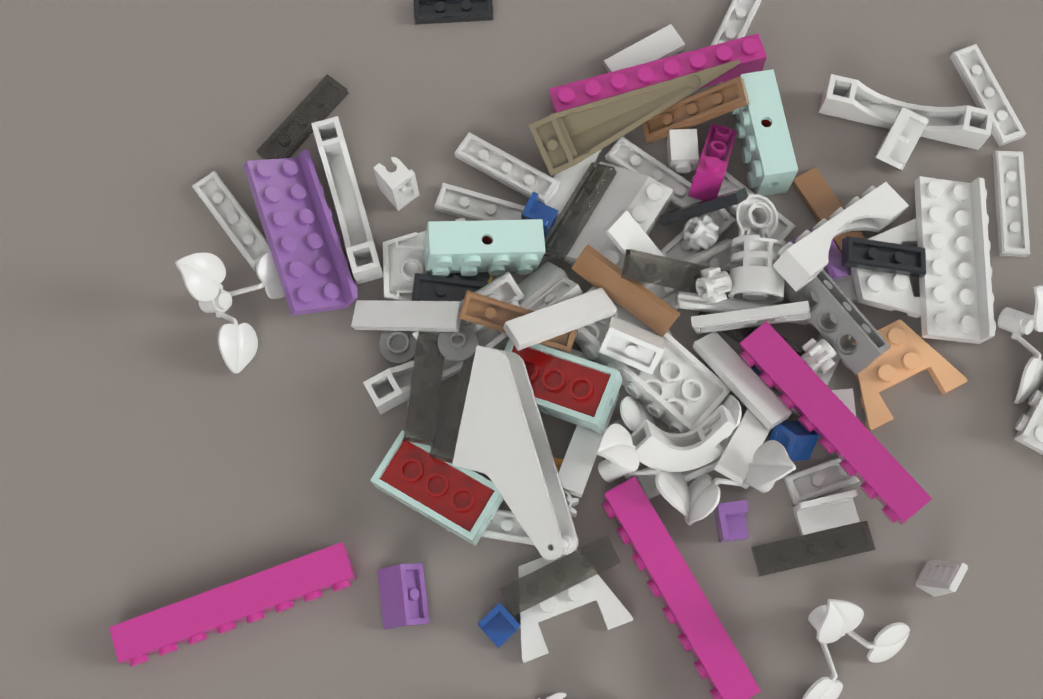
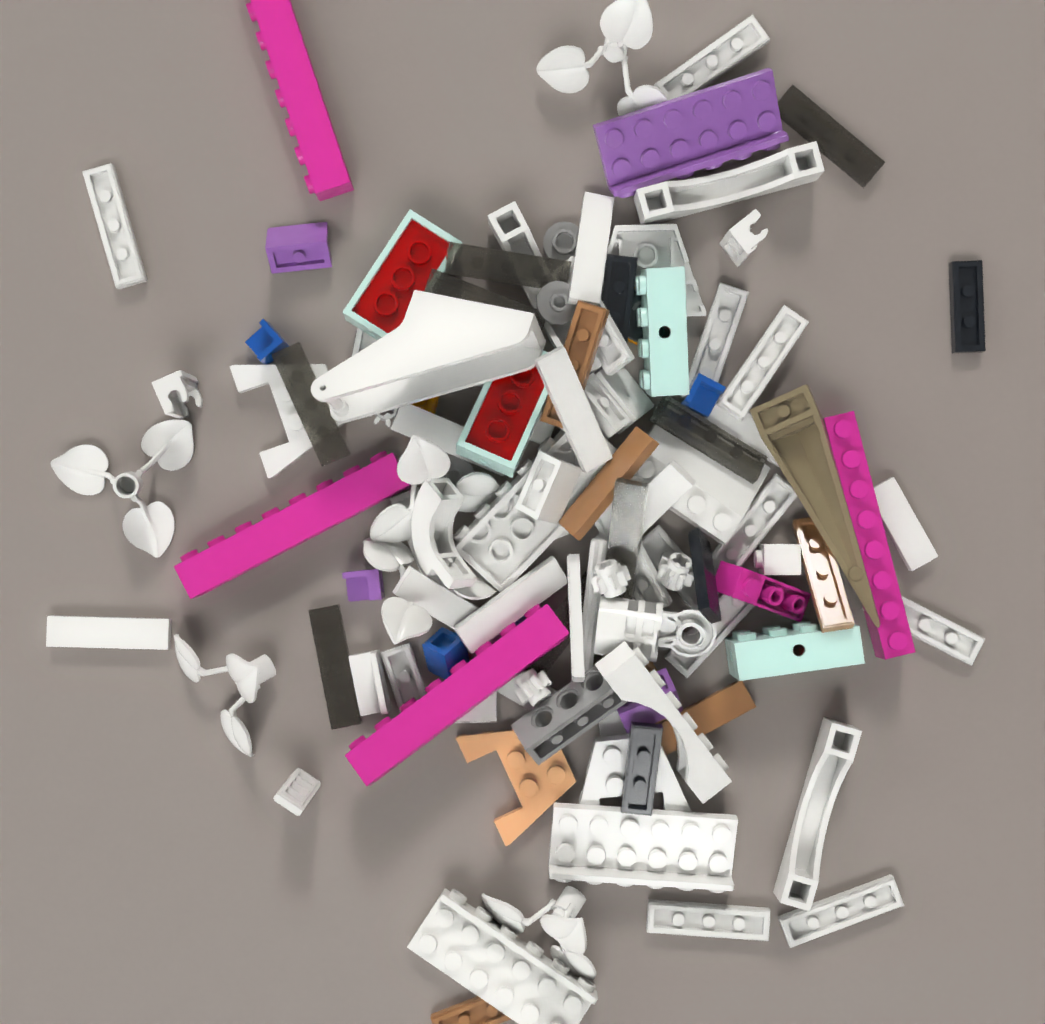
camera: 90 degrees right, 15 degrees up
(901, 138) = (784, 804): white hinge -> none

